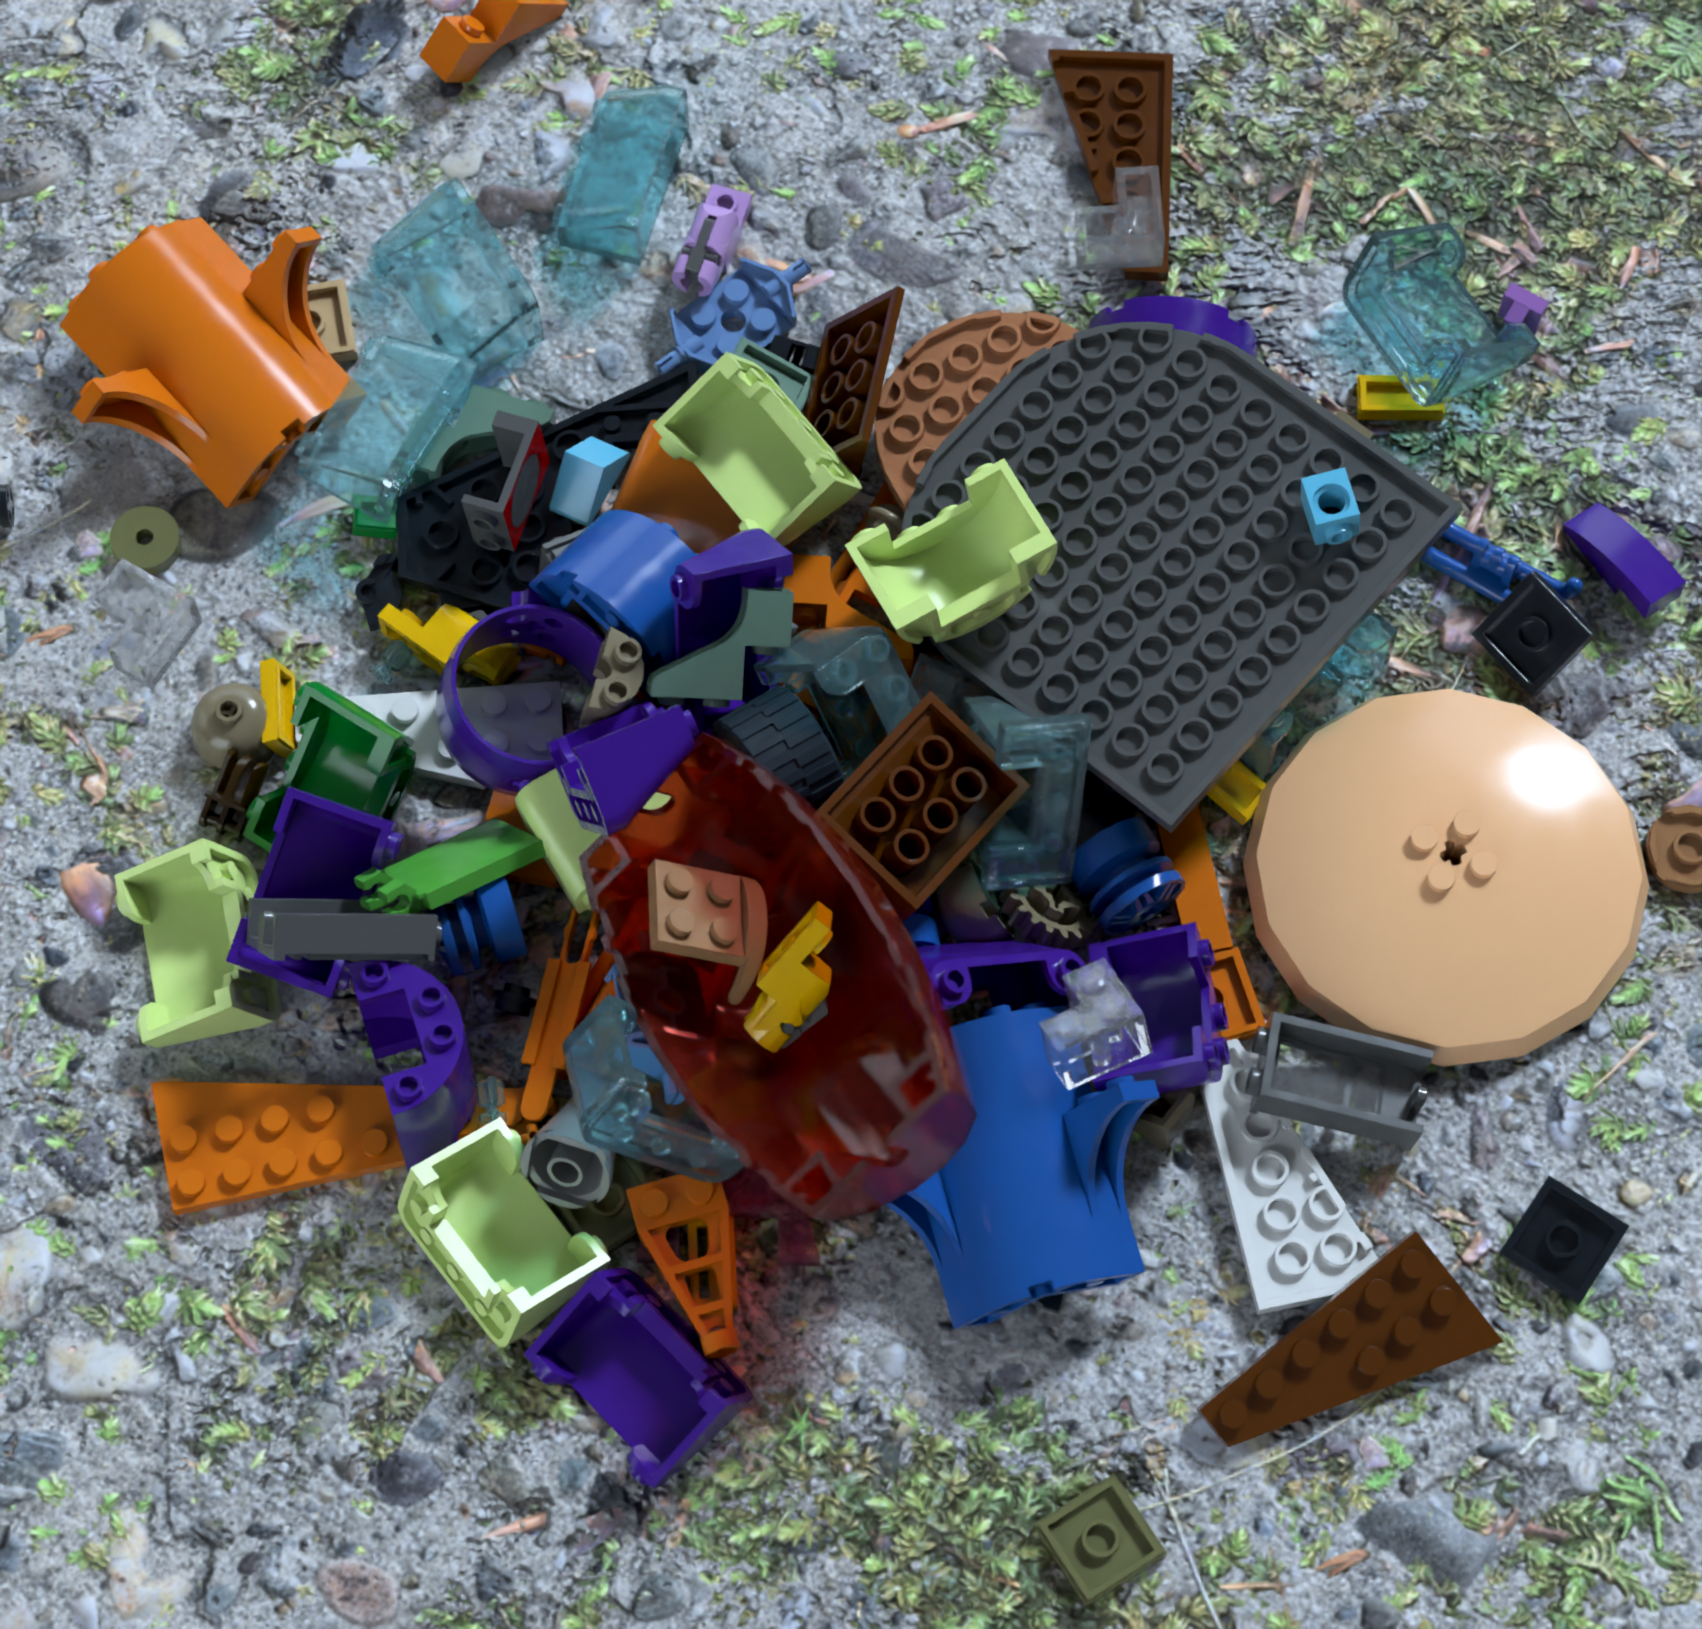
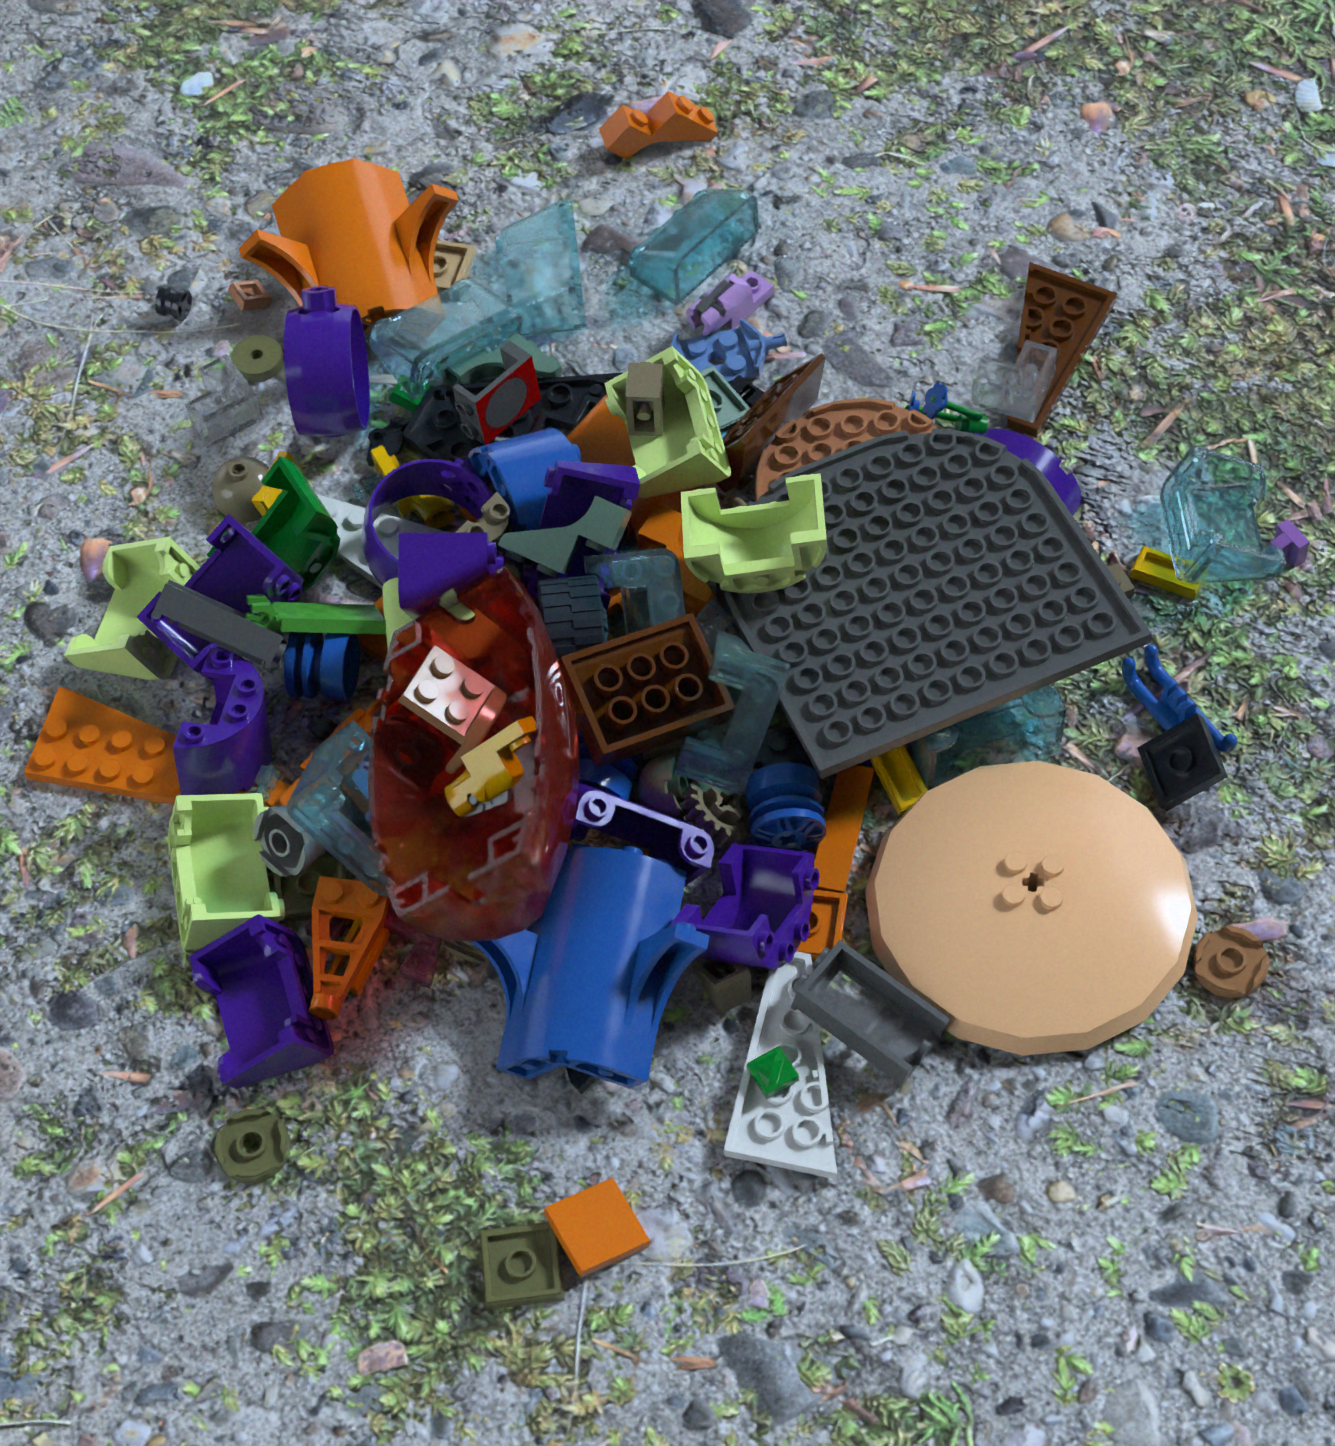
camera: 30 degrees right, 10 degrees down
(87, 457) = (249, 295): none -> nougat tile
(236, 789) = (206, 527): dark brown arm -> none
(275, 529) = (326, 366): none -> dark purple cylinder
(586, 479) = (557, 409): medium azure slope -> none
(719, 429) = (645, 399): none -> dark tan brick
(724, 1570) = (258, 1165): none -> olive tile
(1045, 288) = (937, 399): none -> plant
(1099, 1029) = (689, 889): clear brick -> none
(1163, 1460) = (596, 1227): none -> orange tile
(1269, 1197) = (772, 1072): none -> green tile
(1330, 490) = (1049, 596): medium azure brick -> none
(1372, 1333) = (800, 1203): reddish brown wing -> none
(1563, 1240) = (984, 1200): black plate -> none
(1625, 559) = (1282, 740): dark purple slope -> none

